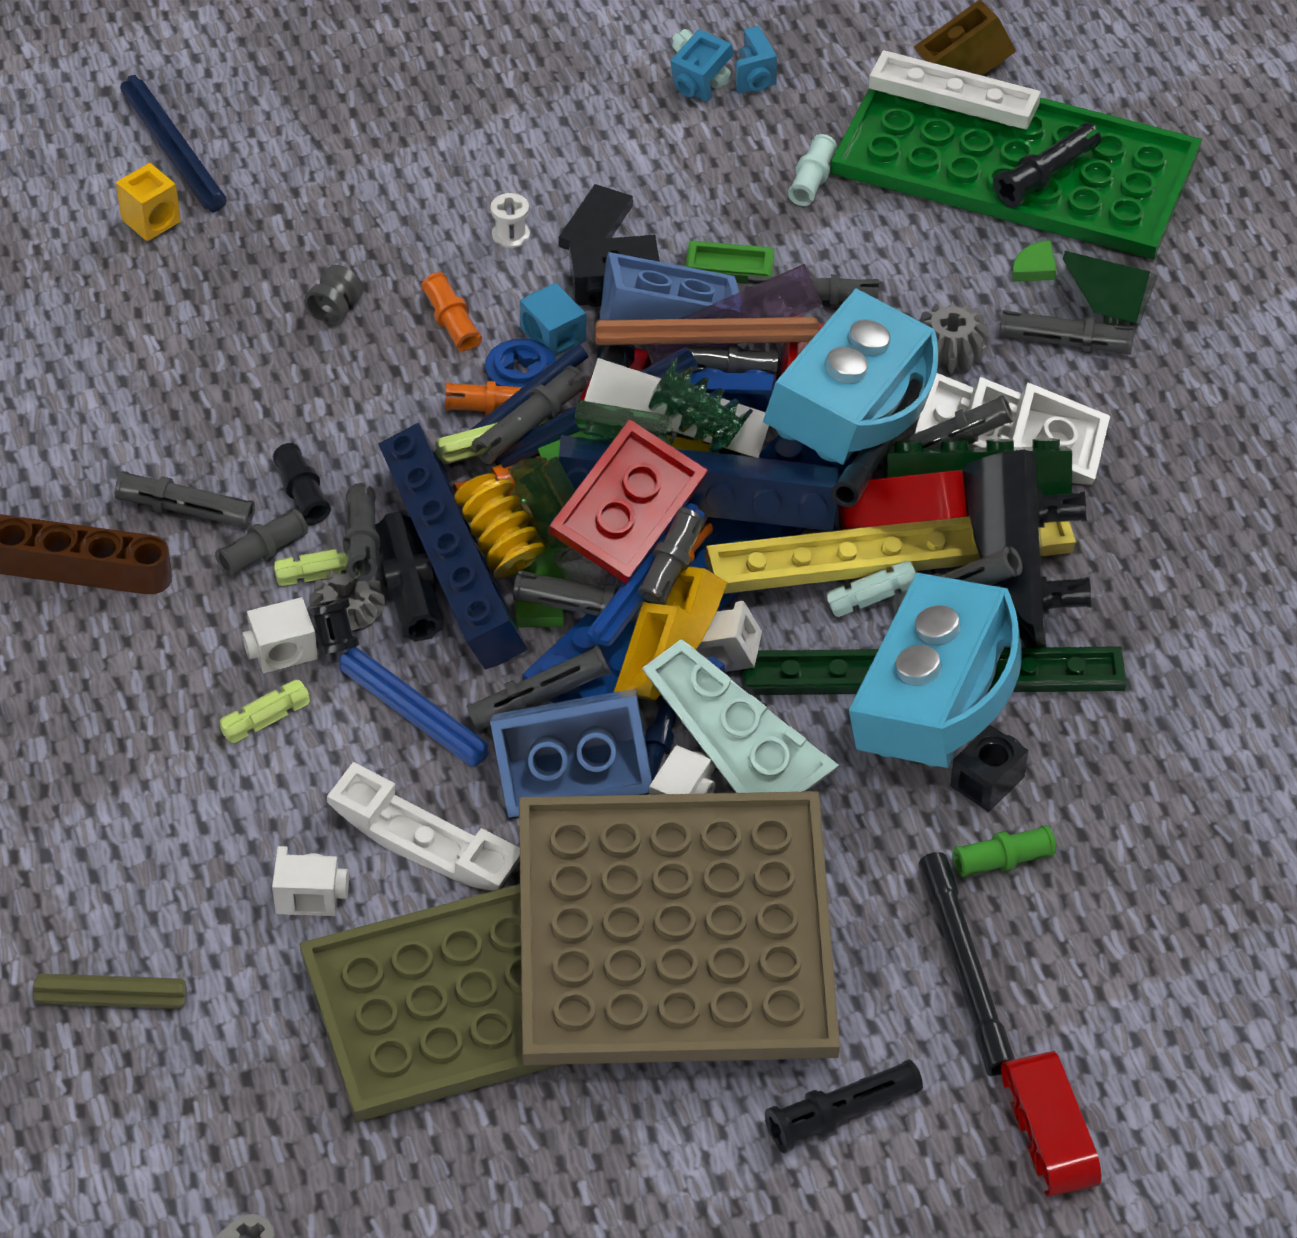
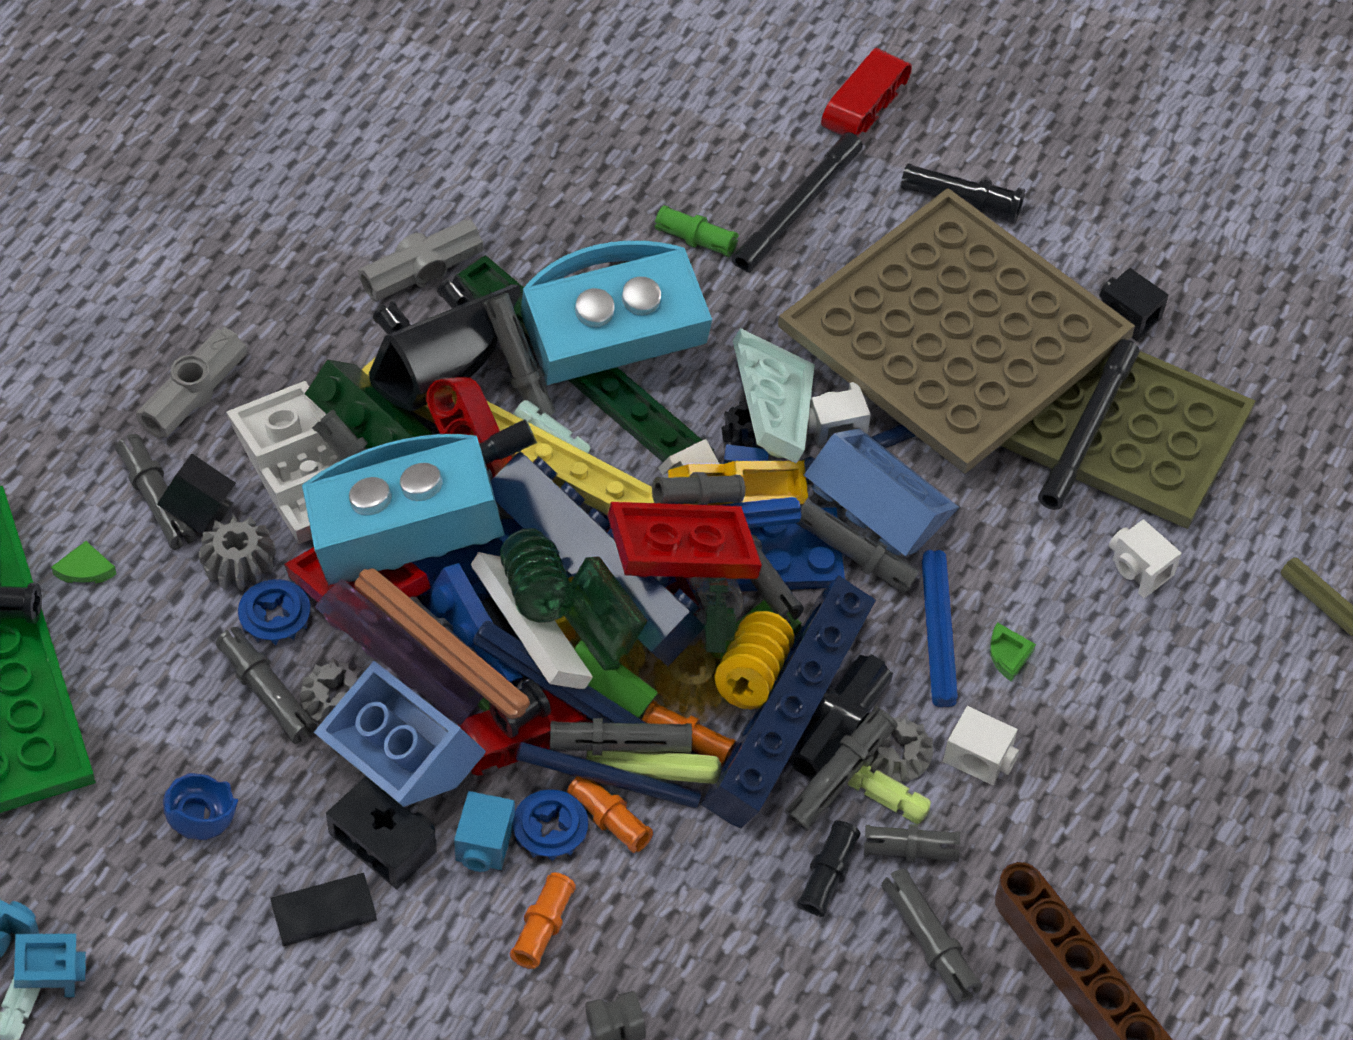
camera: 135 degrees left, 5 degrees up
(264, 711) = (1044, 712): yellowish green axle -> none
(333, 626) = (928, 709): black bush -> none
(341, 736) = (1009, 651): none -> bright green tile
(407, 830) = (1027, 527): white slope -> none
(496, 1006) = (1064, 472): none -> black piece
(519, 212) = (395, 945): white bush -> none
(565, 1115) = (1135, 300): none -> black brick
(731, 259) = (282, 774): bright green tile -> none
(745, 189) = (186, 803): none -> blue hair
(812, 170) = (109, 789): light aqua pin -> none
(1025, 333) = (198, 494): none -> black brick
(1112, 288) = (71, 485): dark green slope -> none
(1160, 408) = (191, 383): none -> light grey piece
(1160, 631) = (421, 259): none -> light grey piece

